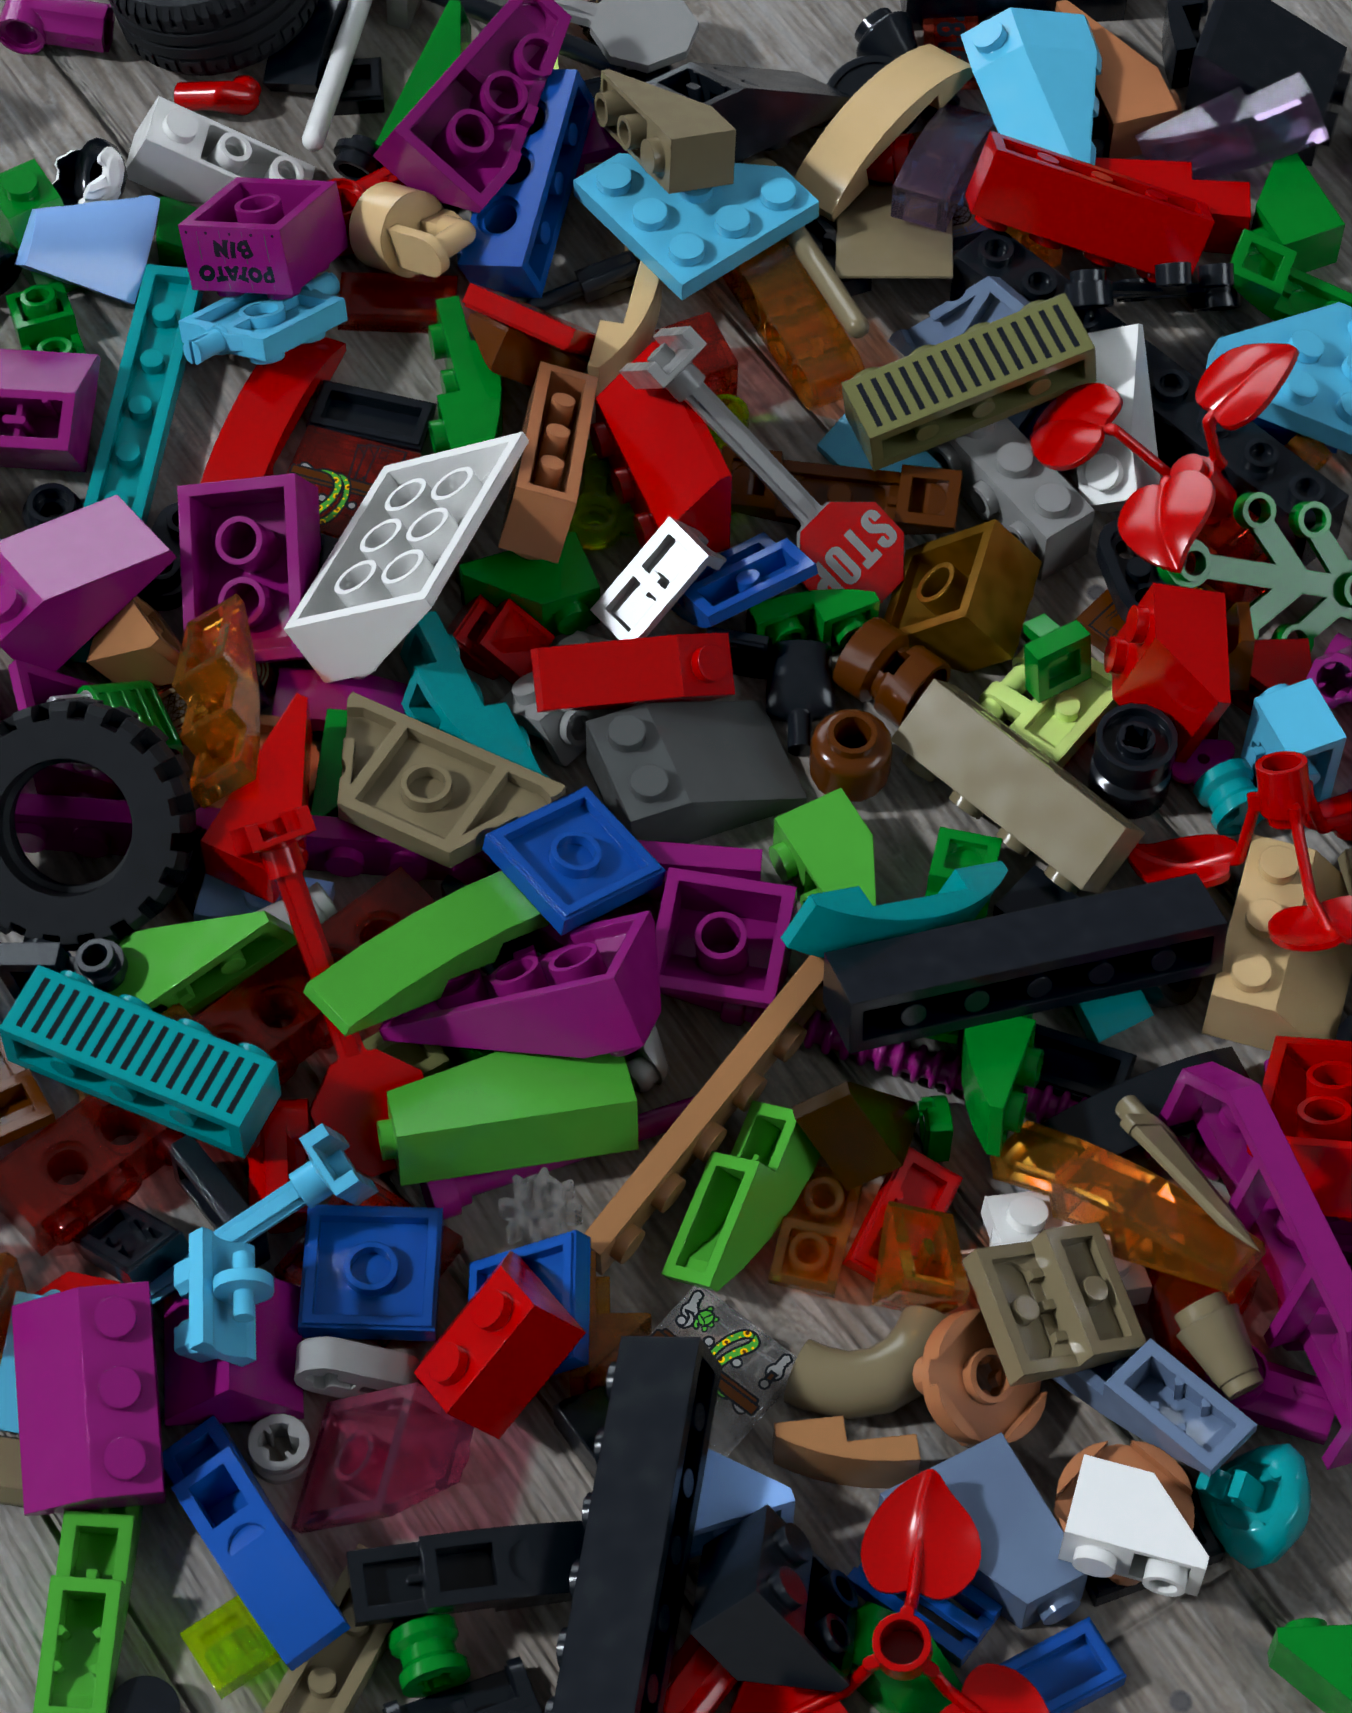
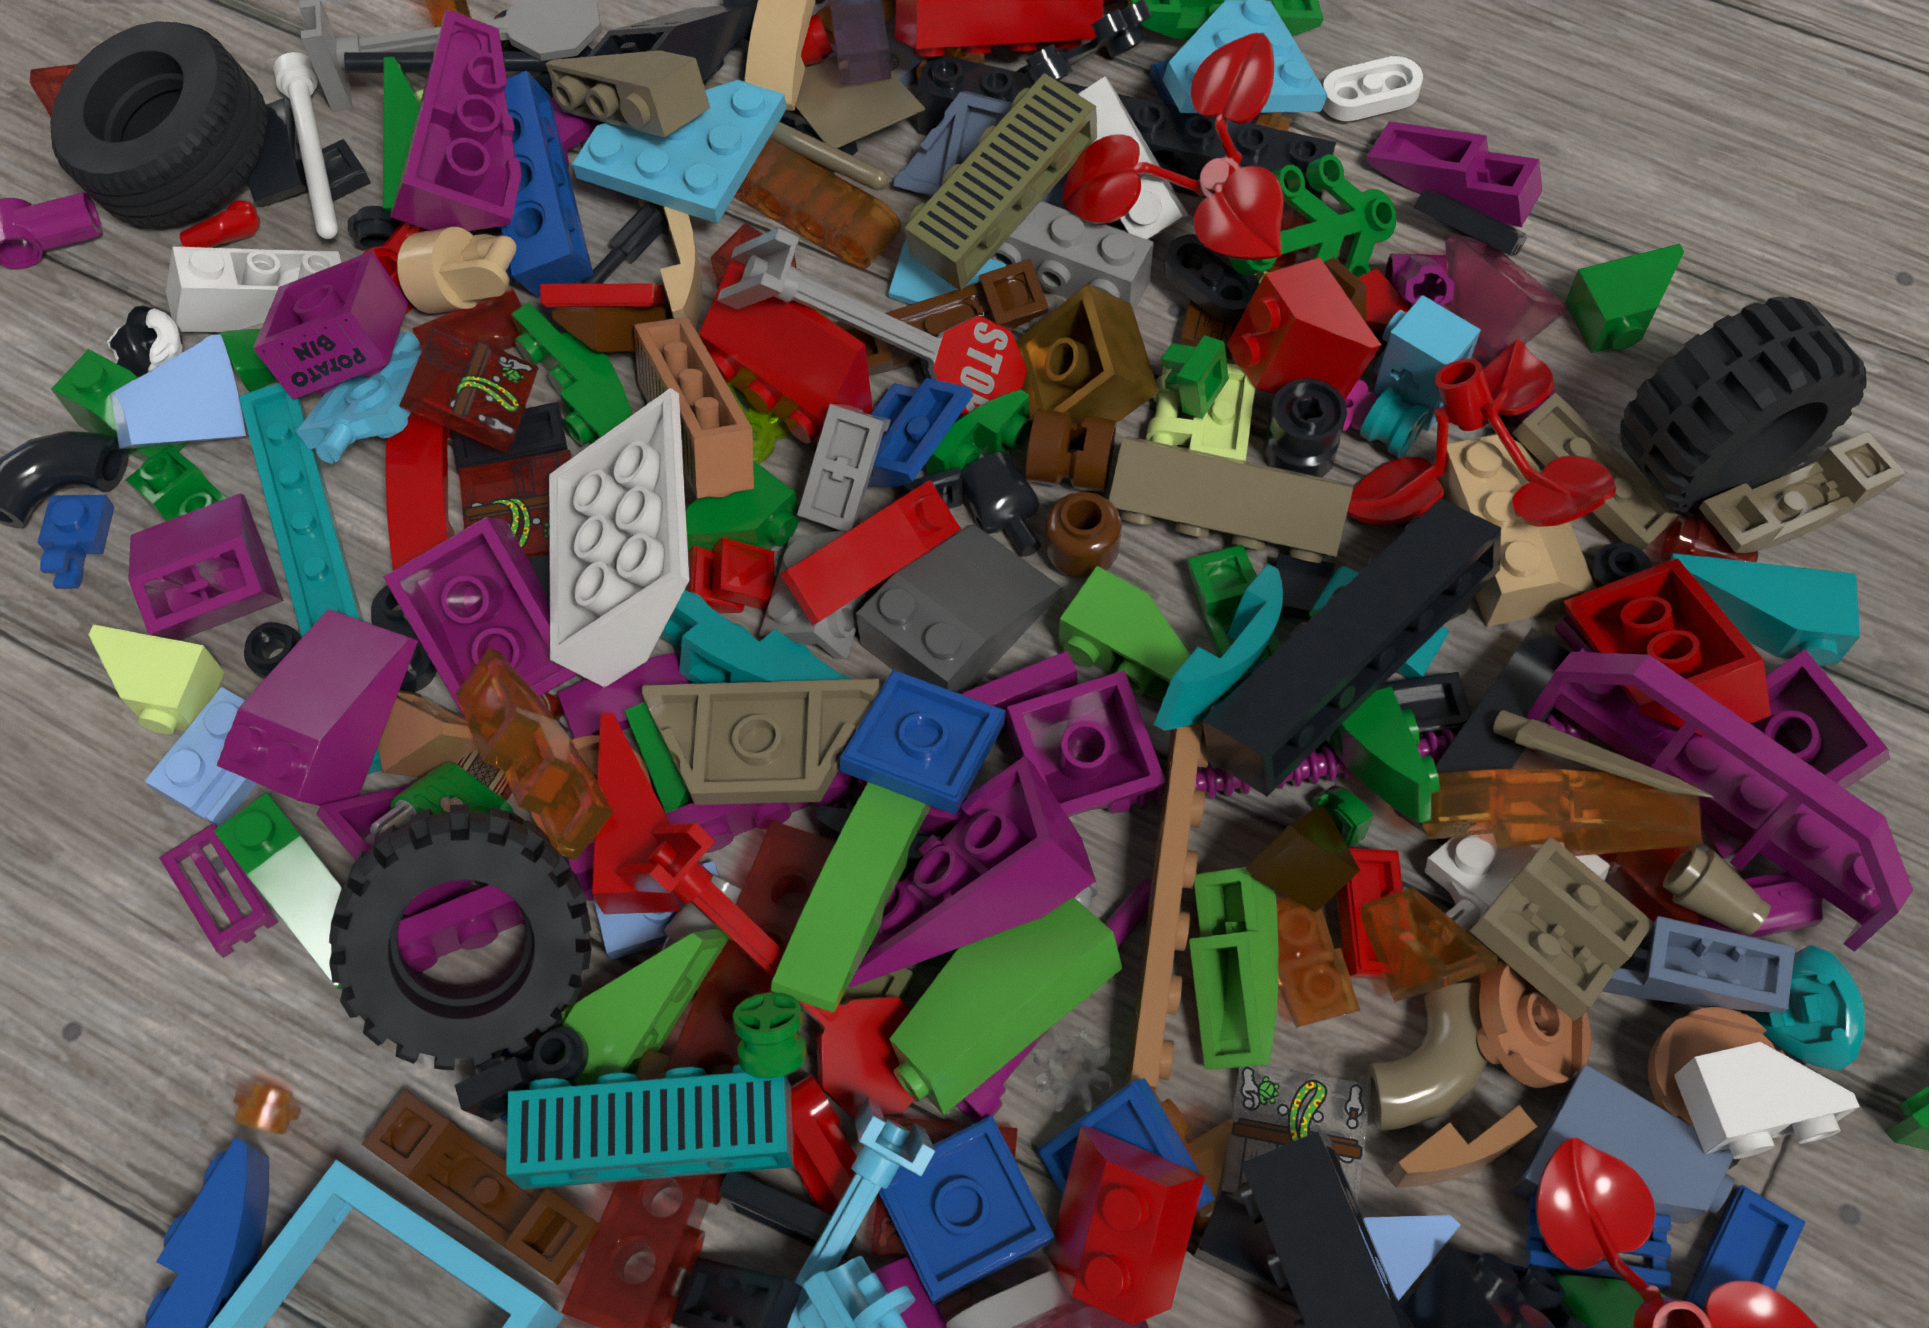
camera: 25 degrees left, 5 degrees up
(280, 1026) = (769, 1035): none -> green wheel
(357, 350) = (469, 386): none -> clear red tile

